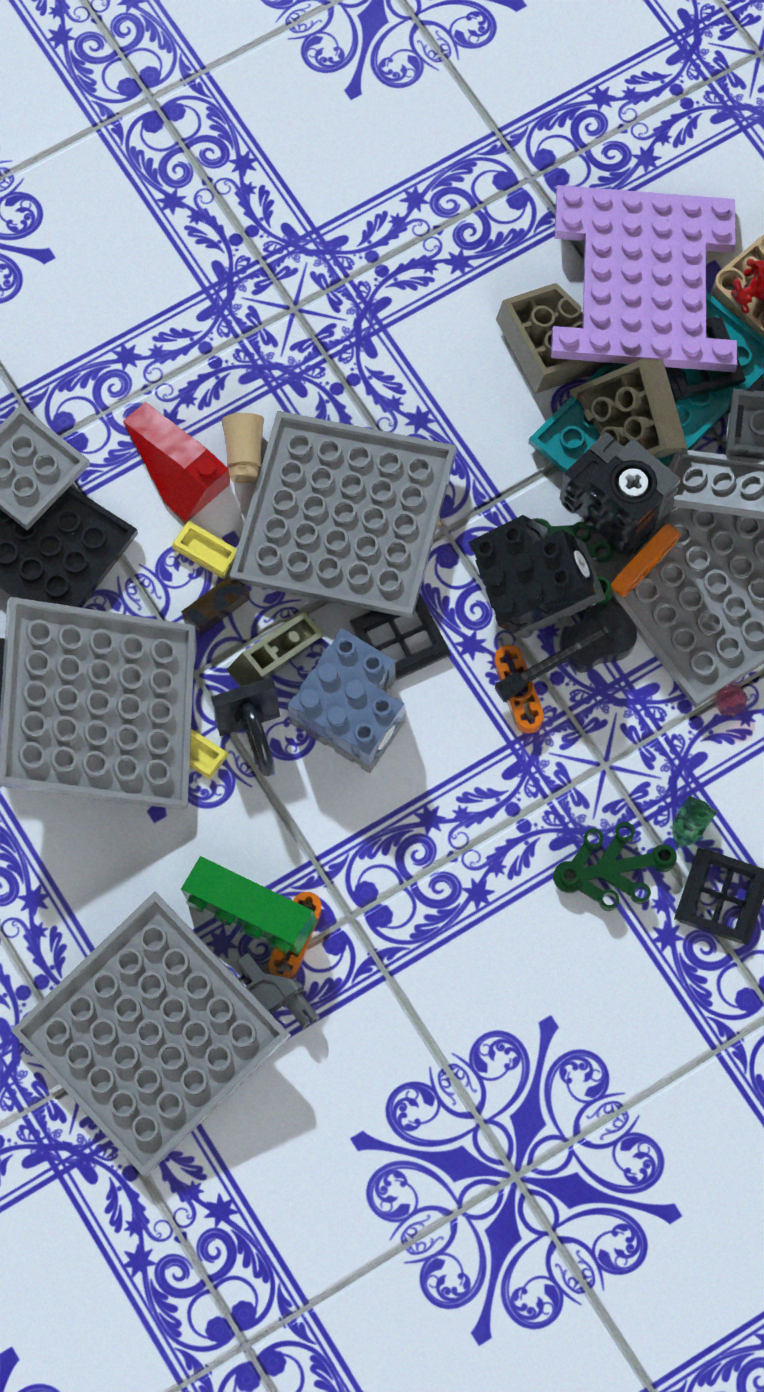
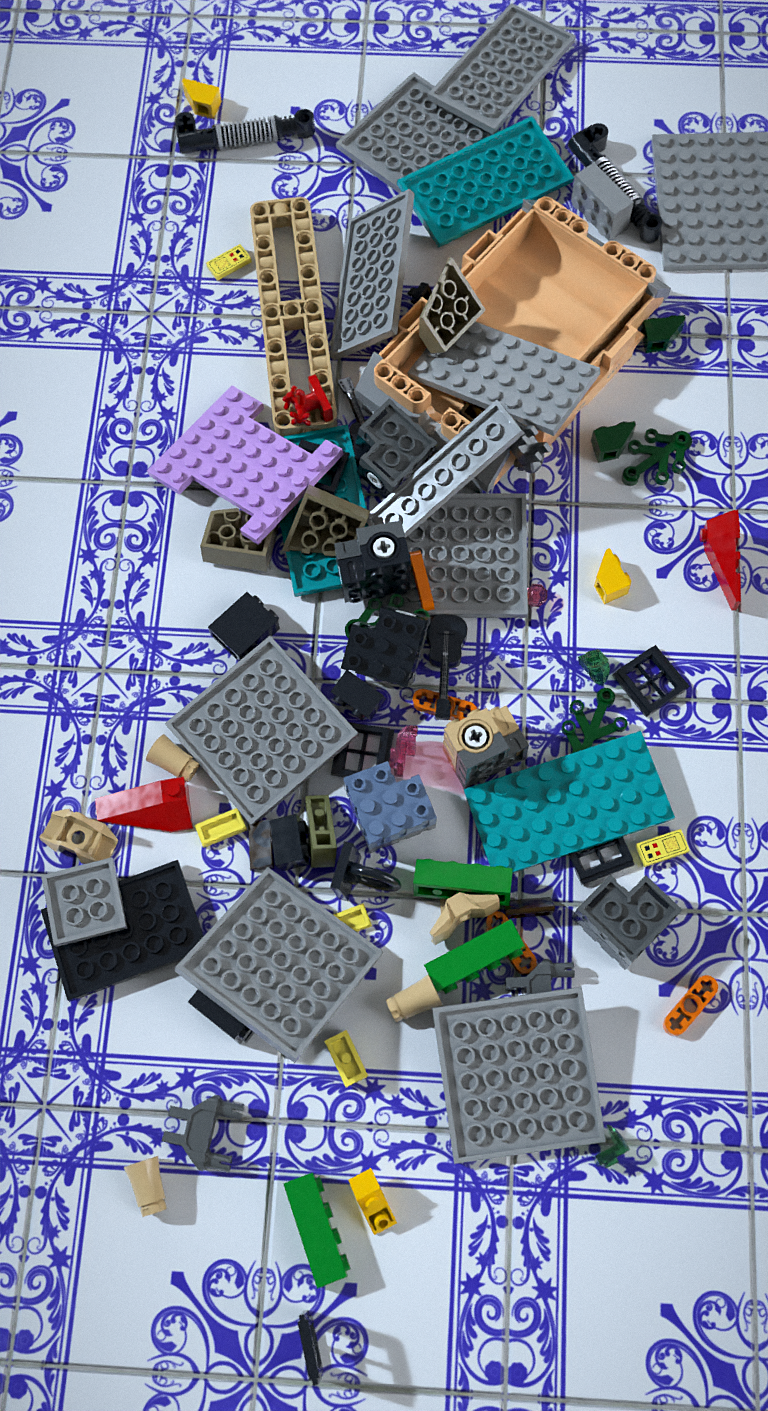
camera: 50 degrees left, 0 degrees up
(46, 846) = (346, 1058): none -> light yellow plate
(95, 440) = (98, 841): none -> tan piece
(129, 1189) = (609, 1156): none -> clear green plate
(156, 874) = (414, 1000): none -> tan plant
(237, 627) = (290, 842): none -> black brick
(287, 851) = (460, 909): none -> tan piece
(324, 838) = (449, 878): none -> green brick
(338, 1164) = (707, 996): none -> orange beam
(348, 930) = (529, 907): none -> dark brown slope
(402, 1040) = (626, 920): none -> dark grey piece
(429, 671) = (405, 747): none -> clear pink slope
(451, 413) = (244, 626): none -> black brick
(457, 586) = (358, 695): none -> black brick
(488, 939) = (605, 868): none -> black piece
(495, 753) = (483, 744): none -> piece
(500, 897) = (569, 804): none -> teal plate
(526, 1034) = (662, 848): none -> light yellow tile

